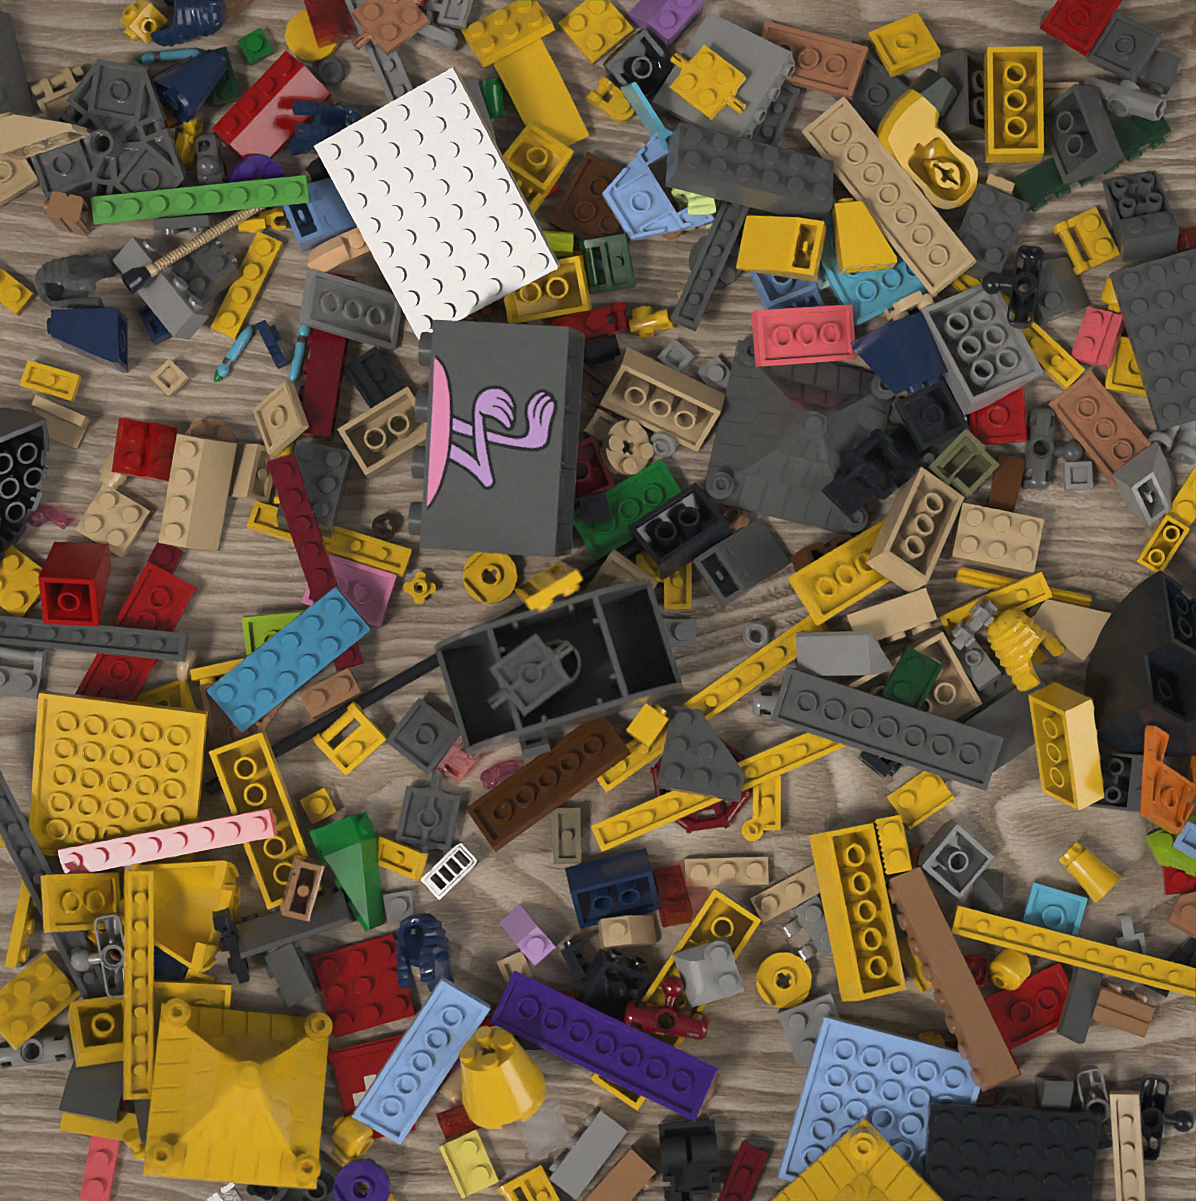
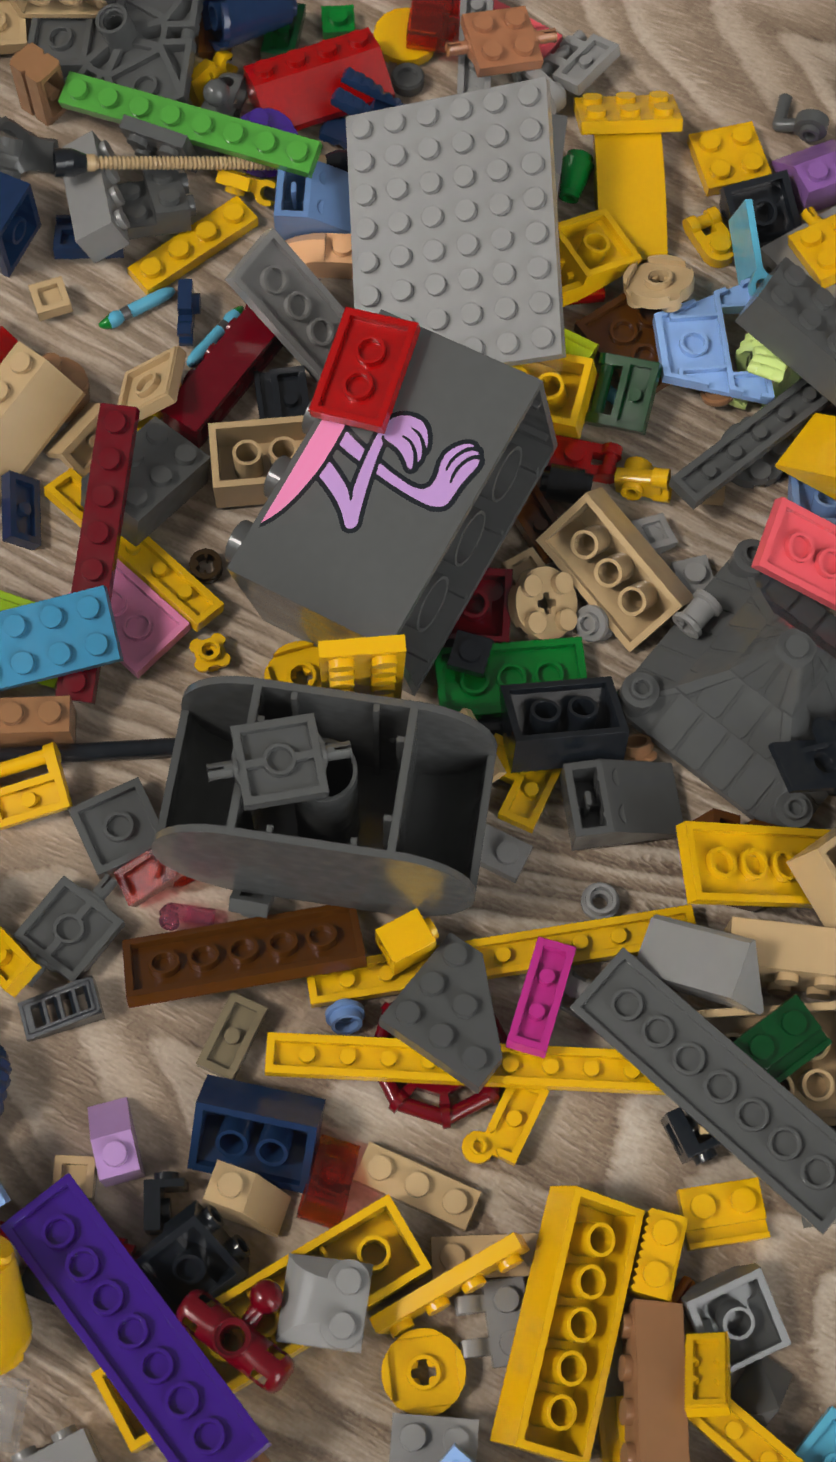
camera: 20 degrees right, 15 degrees down
(238, 548) = (21, 510): none -> dark blue plate
(445, 372) = (364, 370): none -> red plate
(601, 179) = (646, 292): none -> tan plate
(631, 788) = (345, 1016): none -> medium blue plate
(733, 413) = (697, 613): none -> light grey bush
(749, 721) = (541, 997): none -> dark pink plate
(784, 915) = (464, 1277): none -> yellow plate
(953, 903) = (707, 1374): none -> yellow plate

